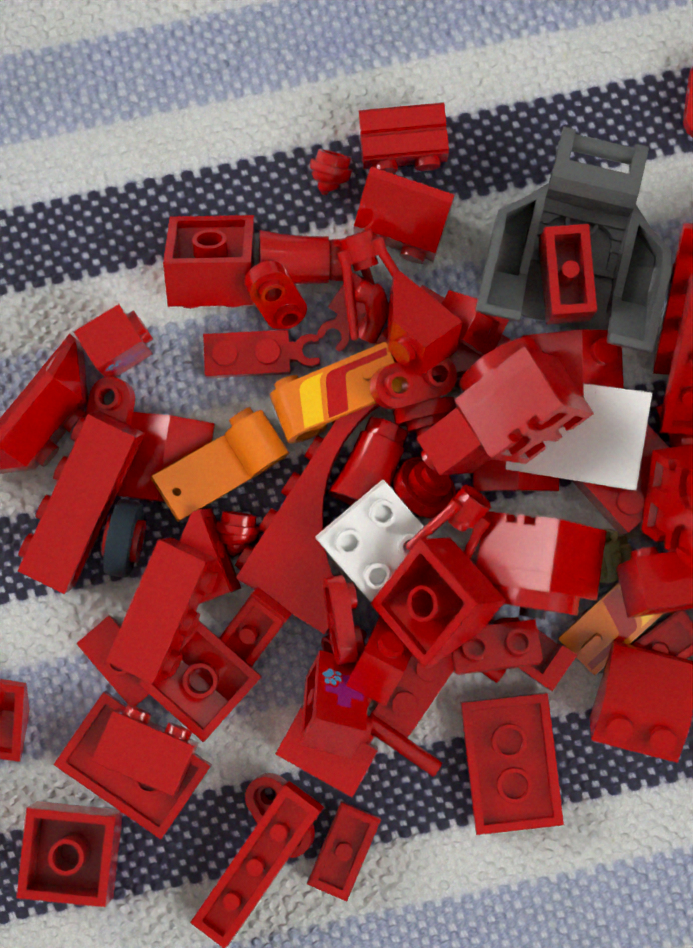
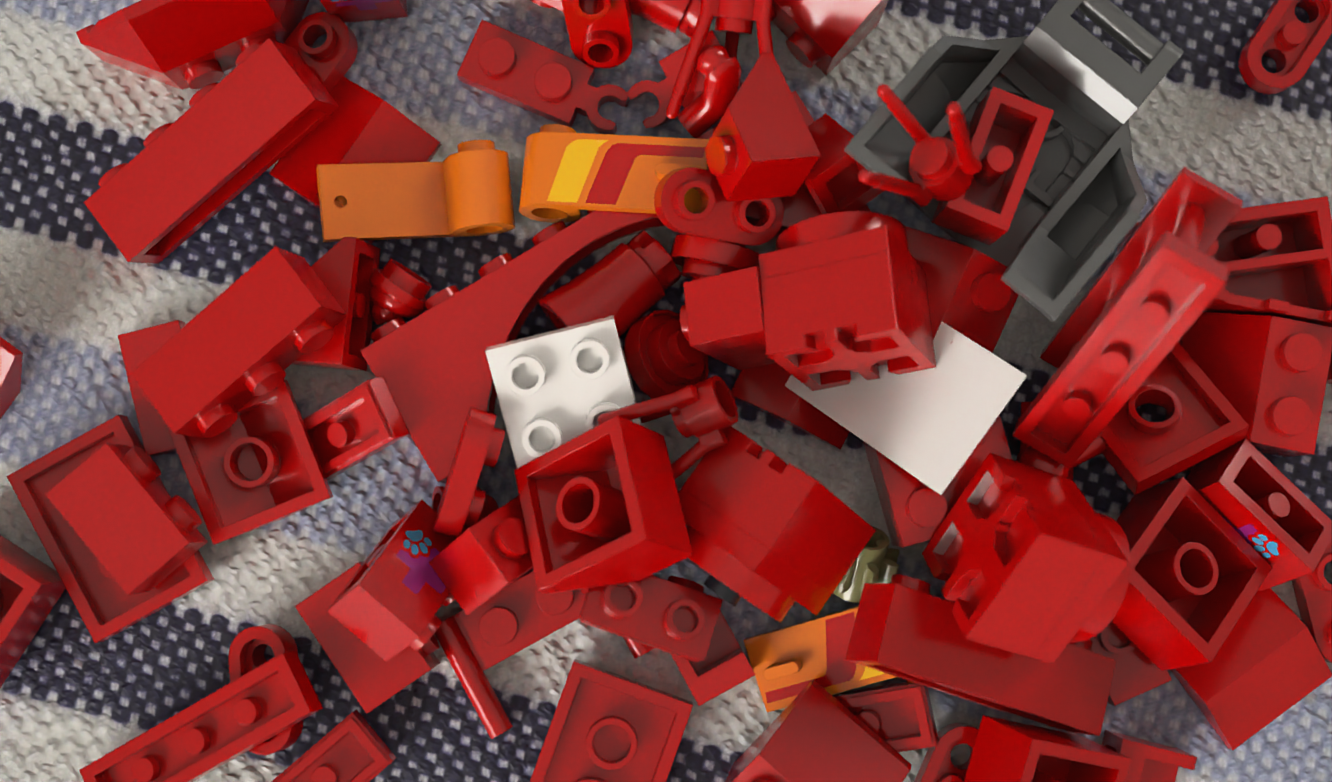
camera: 20 degrees right, 0 degrees up
(123, 538) = (242, 228): black wheel -> none
(534, 292) = (936, 163): none -> red plant

